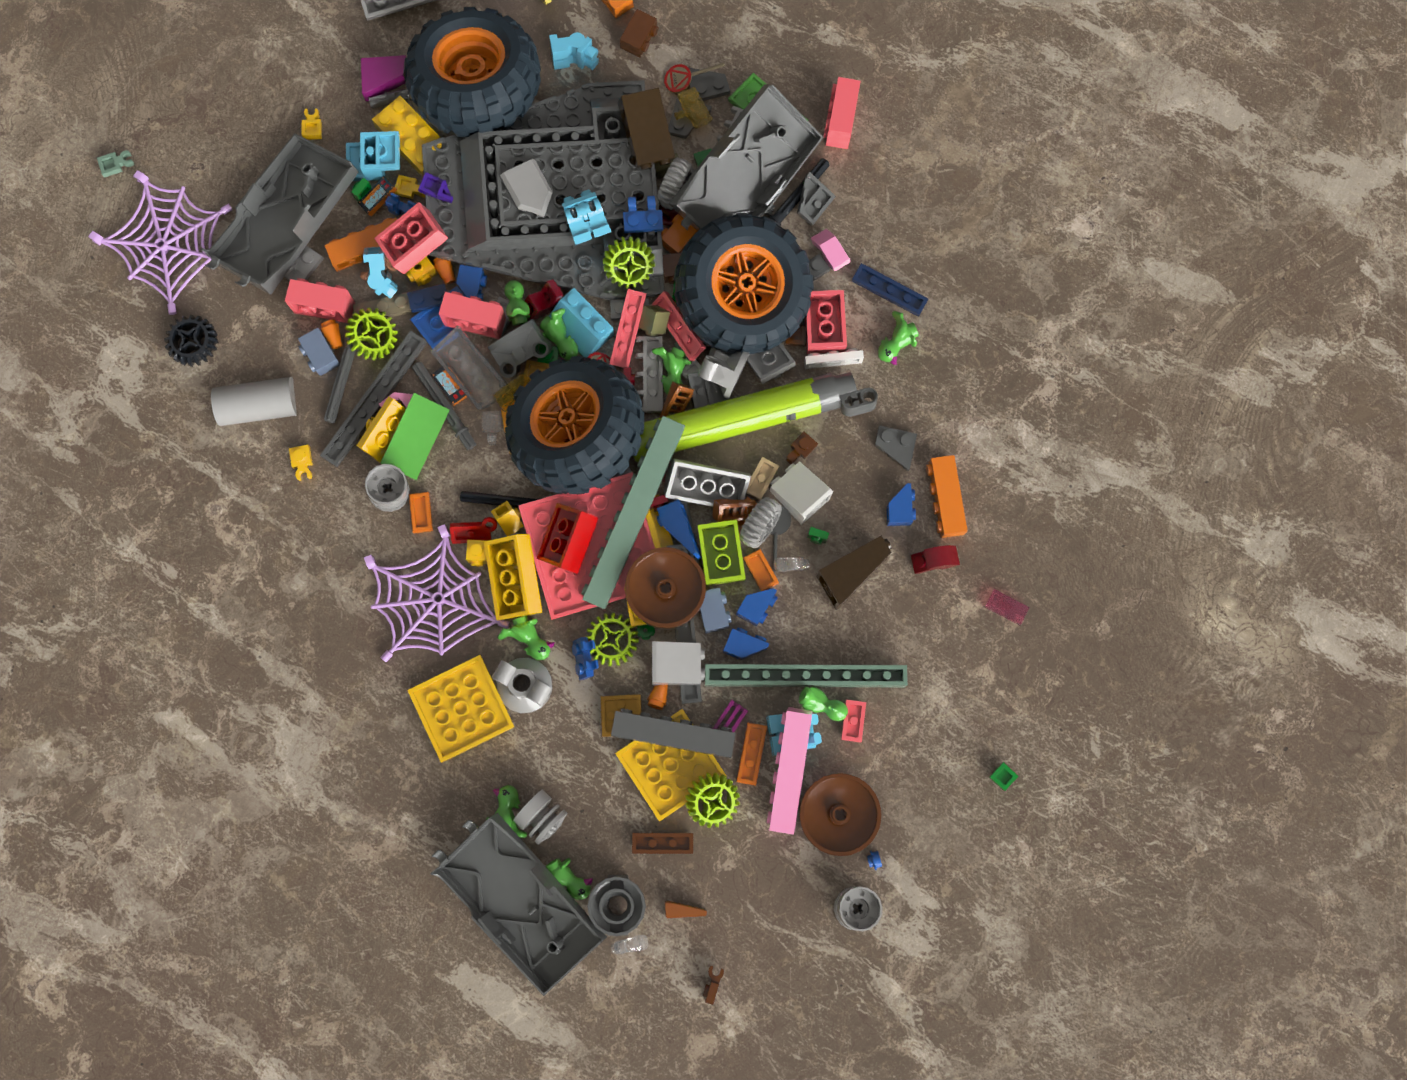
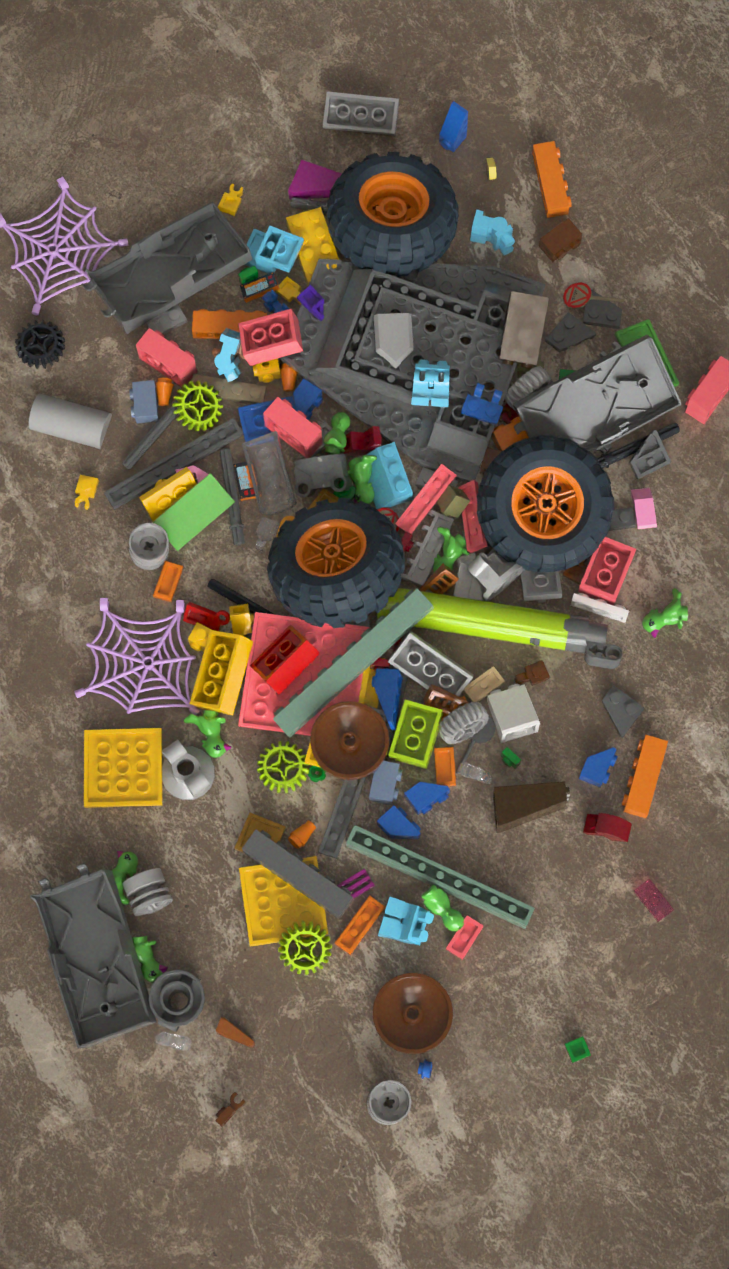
camera: 30 degrees right, 5 degrees down
(112, 163) = (43, 161): sand green plate -> none
(426, 298) = (260, 395): dark blue plate -> none
(505, 397) = (288, 510): clear yellow plate -> none
(581, 650) = (248, 778): blue plate -> none
(643, 265) = (437, 433): lime gear -> none
(662, 843) = (243, 966): reddish brown plate -> none
(677, 663) = (329, 812): light grey slope -> none
(693, 108) = (577, 328): clear yellow plate -> none
(790, 770) = (386, 952): bright pink brick -> none
(889, 290) = (681, 568): dark blue plate -> none

